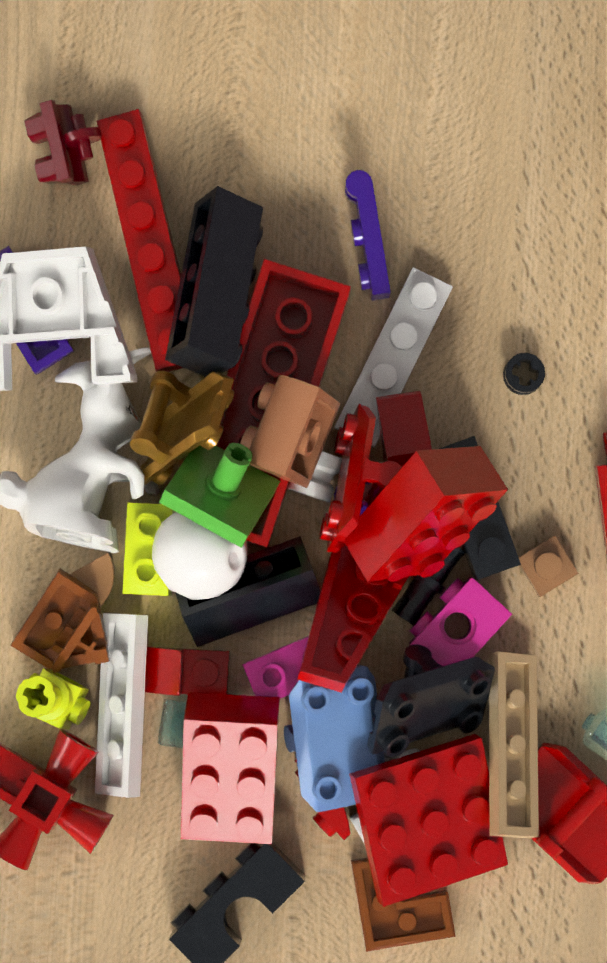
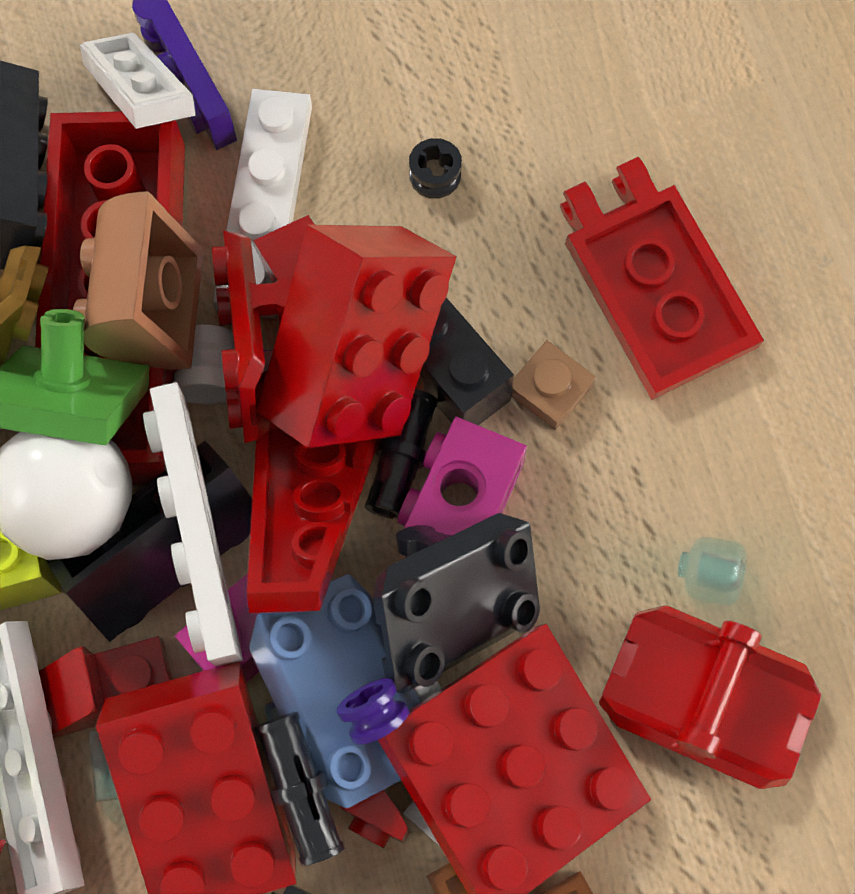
camera: 25 degrees left, 15 degrees down
(275, 628) = (198, 555): none -> white plate
(292, 791) = (299, 789): none -> black pin
(331, 245) = (137, 80): none -> white tile
(353, 762) = (372, 711): none -> dark purple bush
(513, 746) = (597, 629): tan plate -> none

